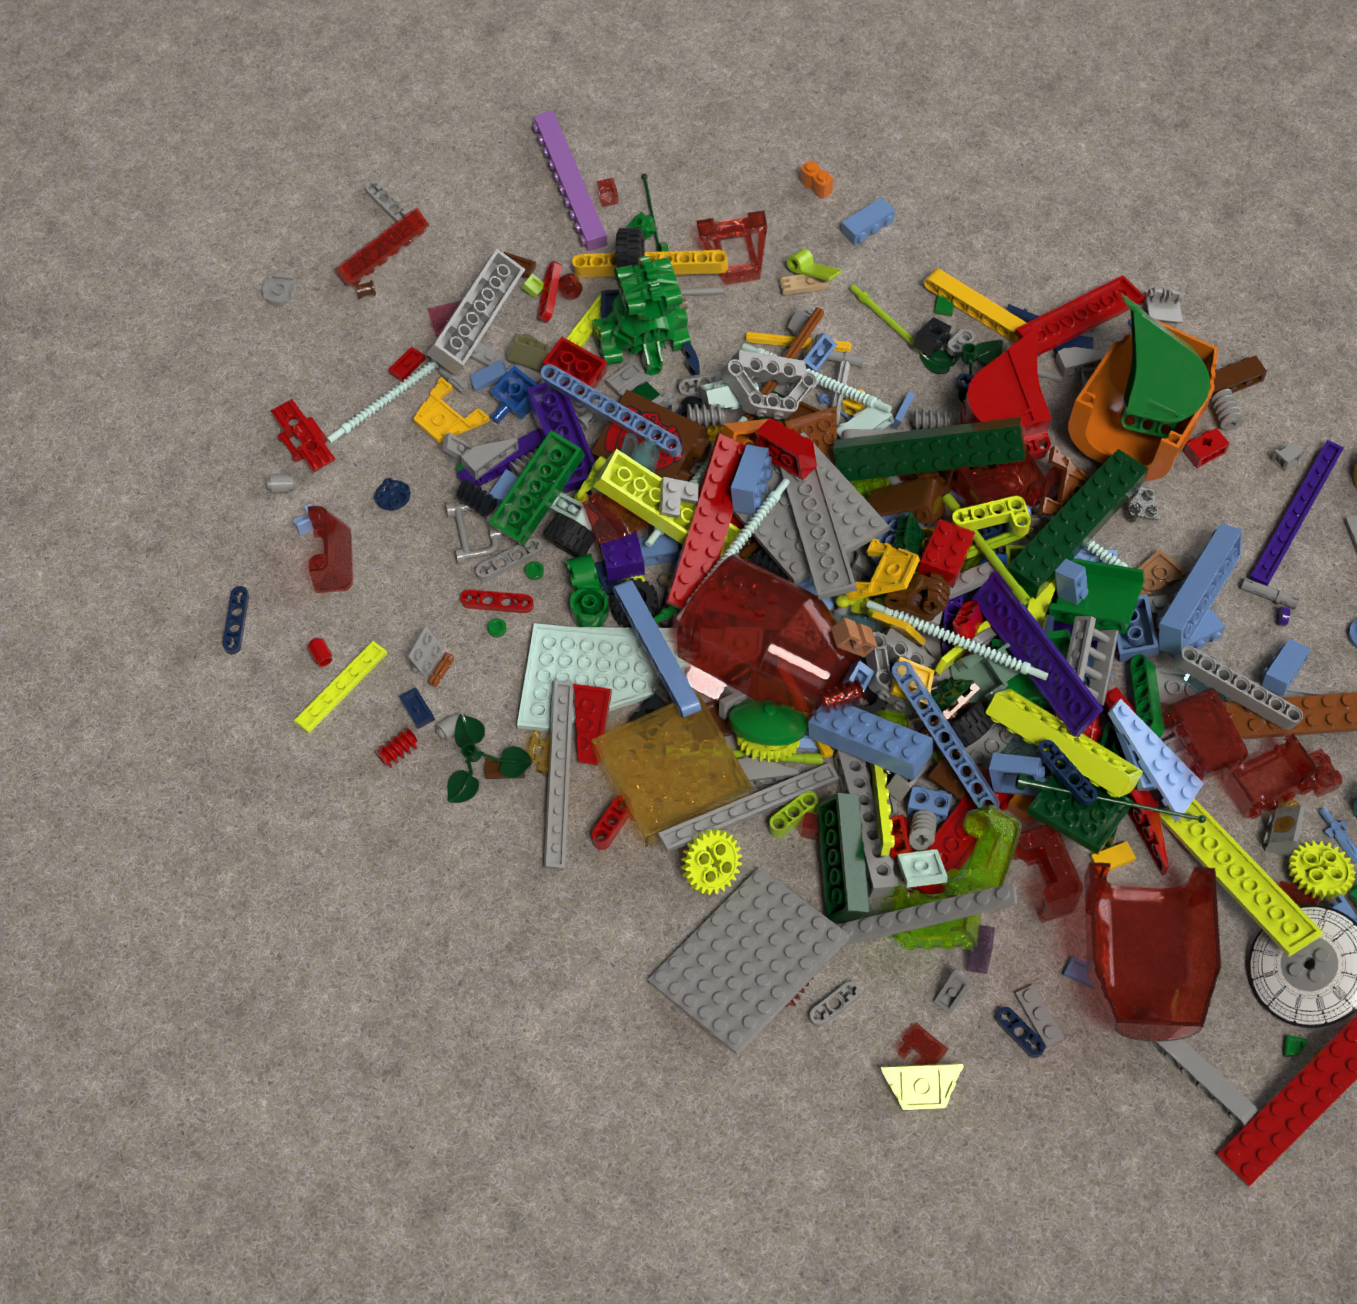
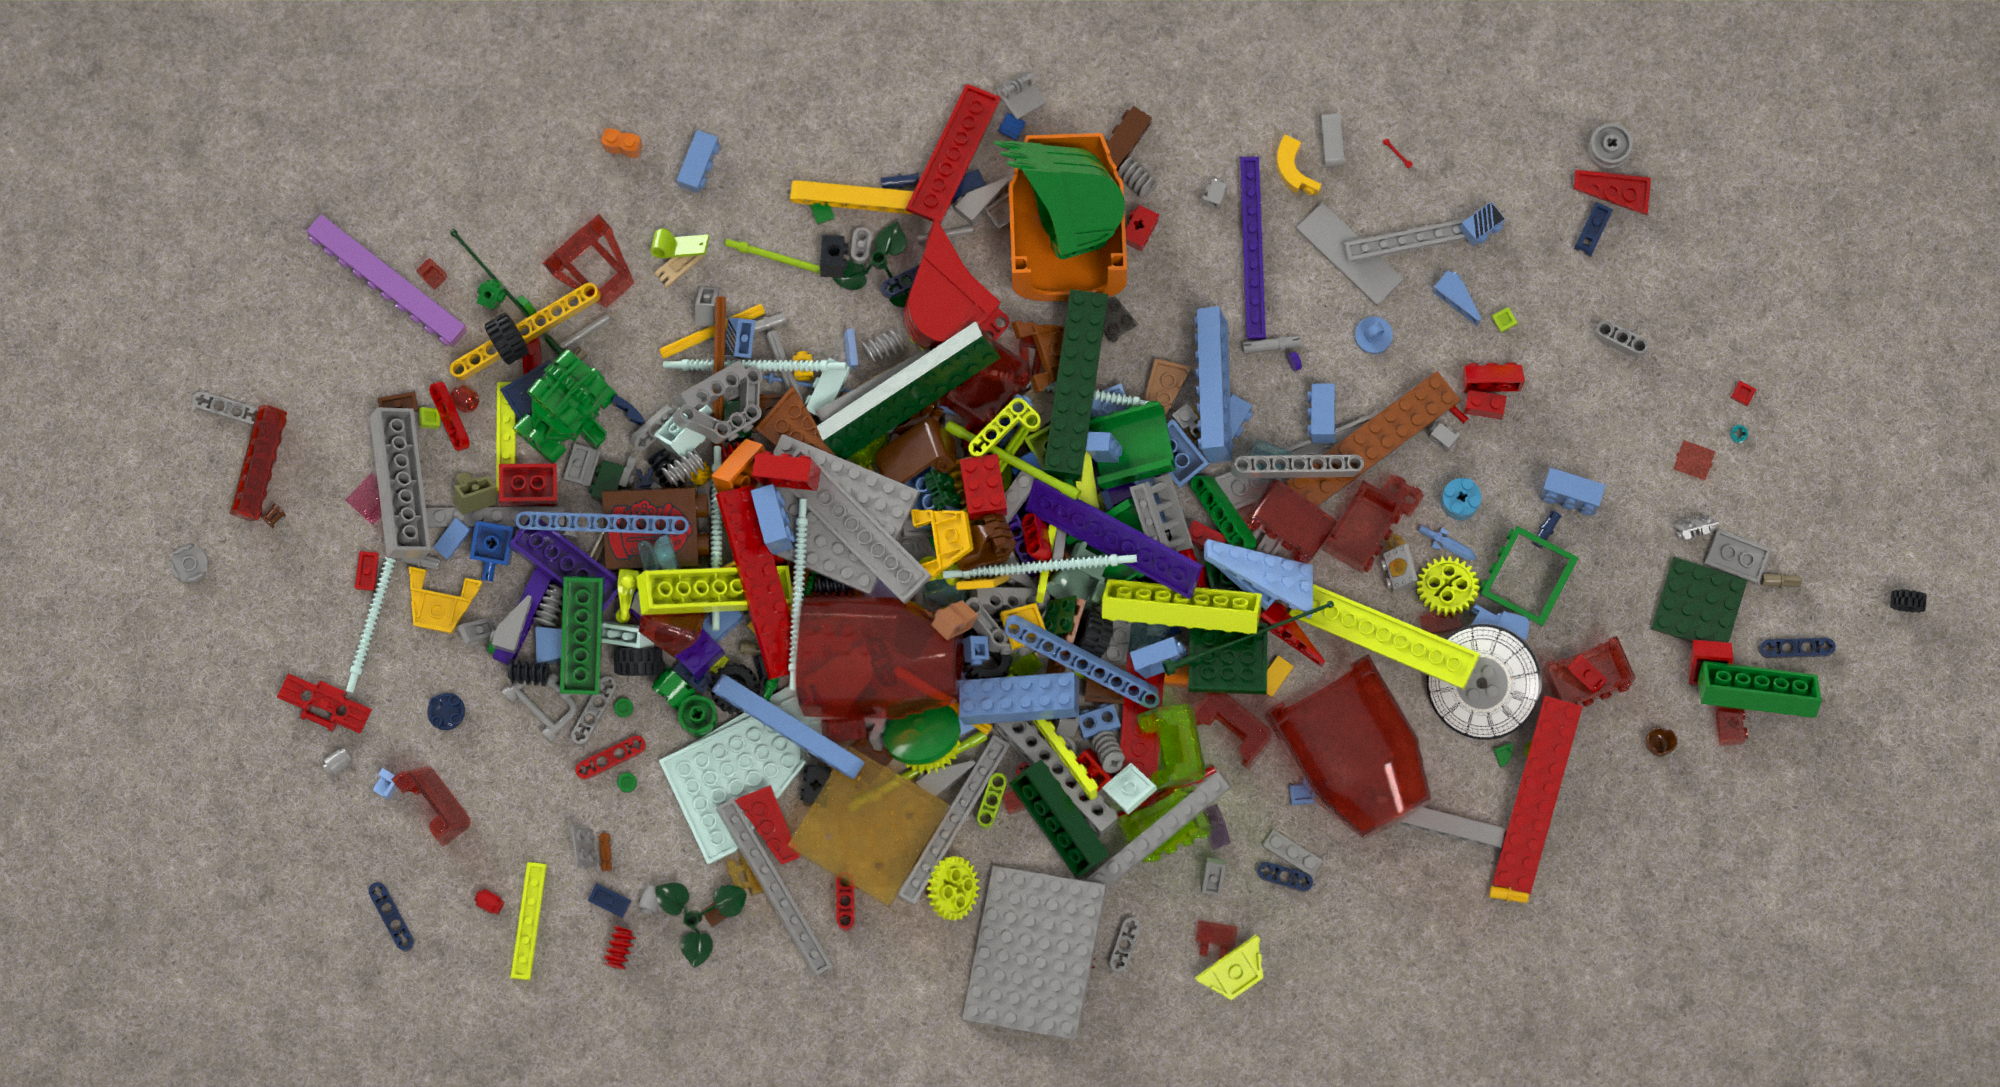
camera: 30 degrees left, 15 degrees up
(674, 491) = (714, 576): light grey plate -> none
(841, 695) = (975, 678): clear red piece -> none
(1063, 774) = (1200, 640): dark blue beam -> none
(1227, 1174) = (1508, 894): none -> yellow axle

